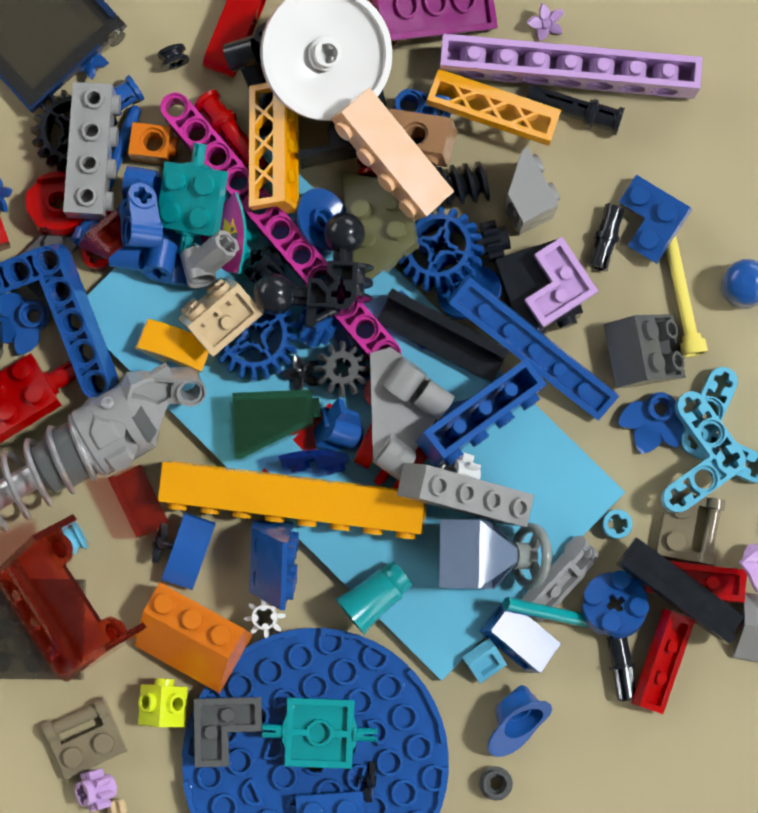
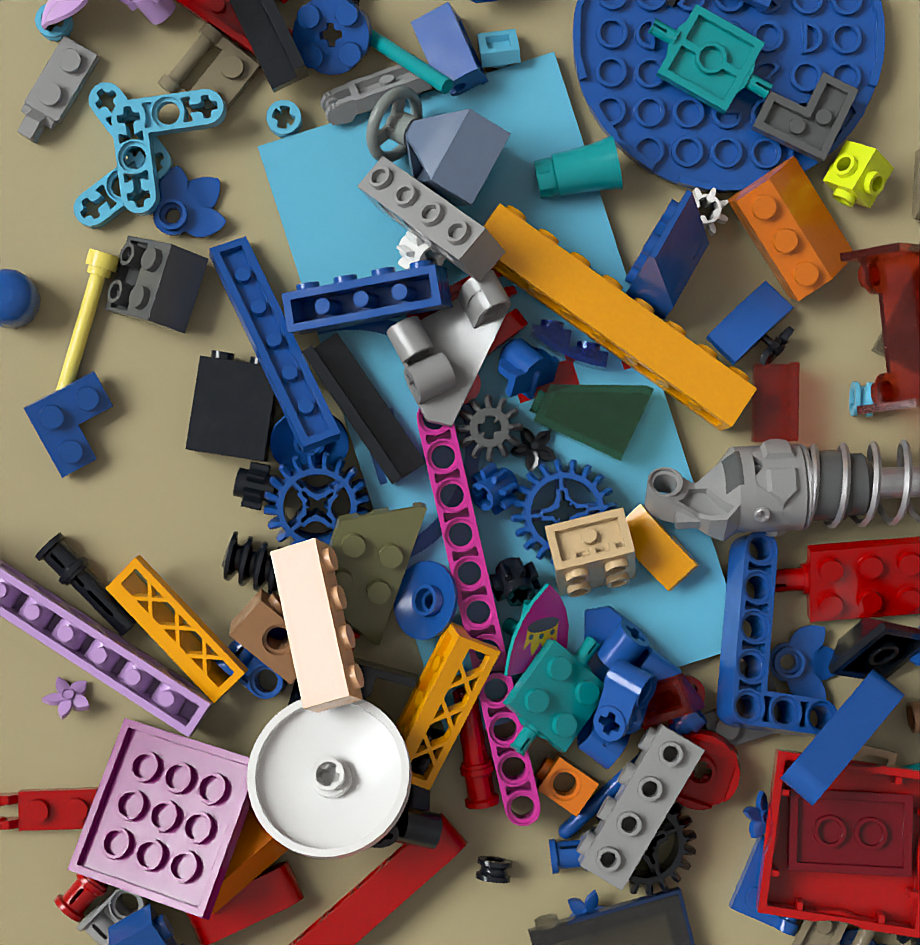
camera: 150 degrees left, 5 degrees up
(204, 260) = (576, 619): light grey piece -> none
(343, 235) = (413, 566): black piece -> none
(530, 197) = (191, 513): light grey slope -> none
(568, 284) = (199, 390): lavender plate -> none
(606, 237) = (131, 427): black pin -> none

